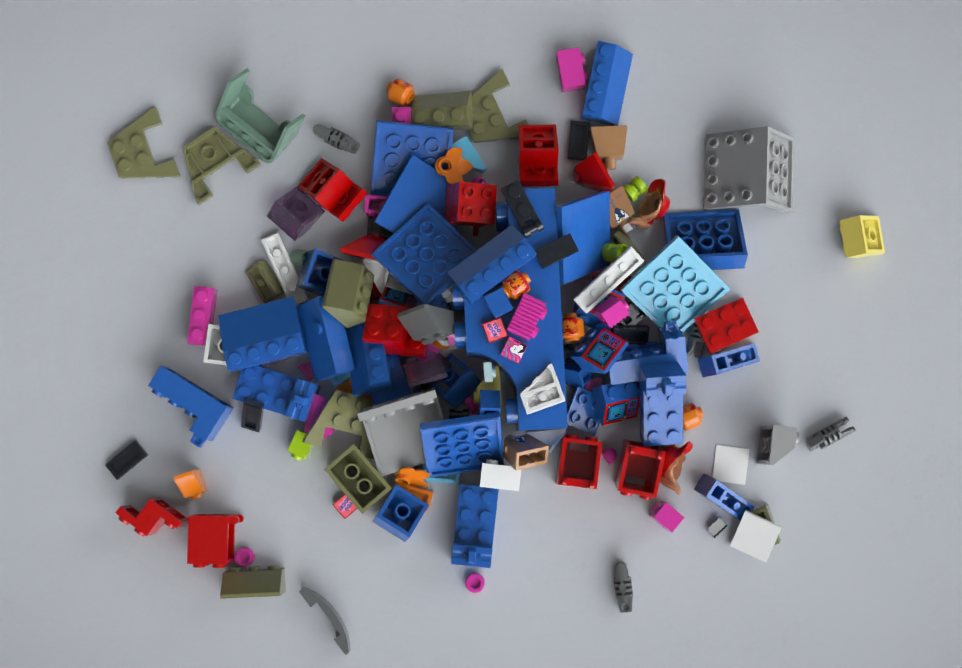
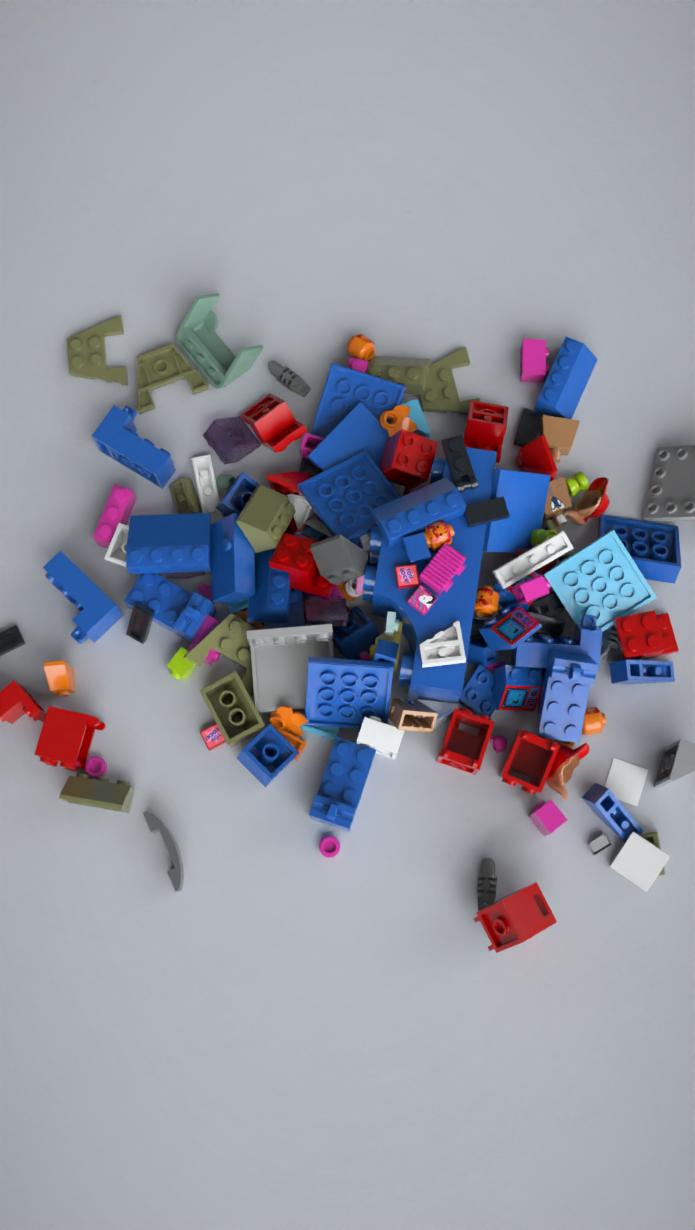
camera: 15 degrees right, 10 degrees down
(185, 239) = (118, 440): none -> blue hinge
(654, 613) = (516, 917): none -> red container

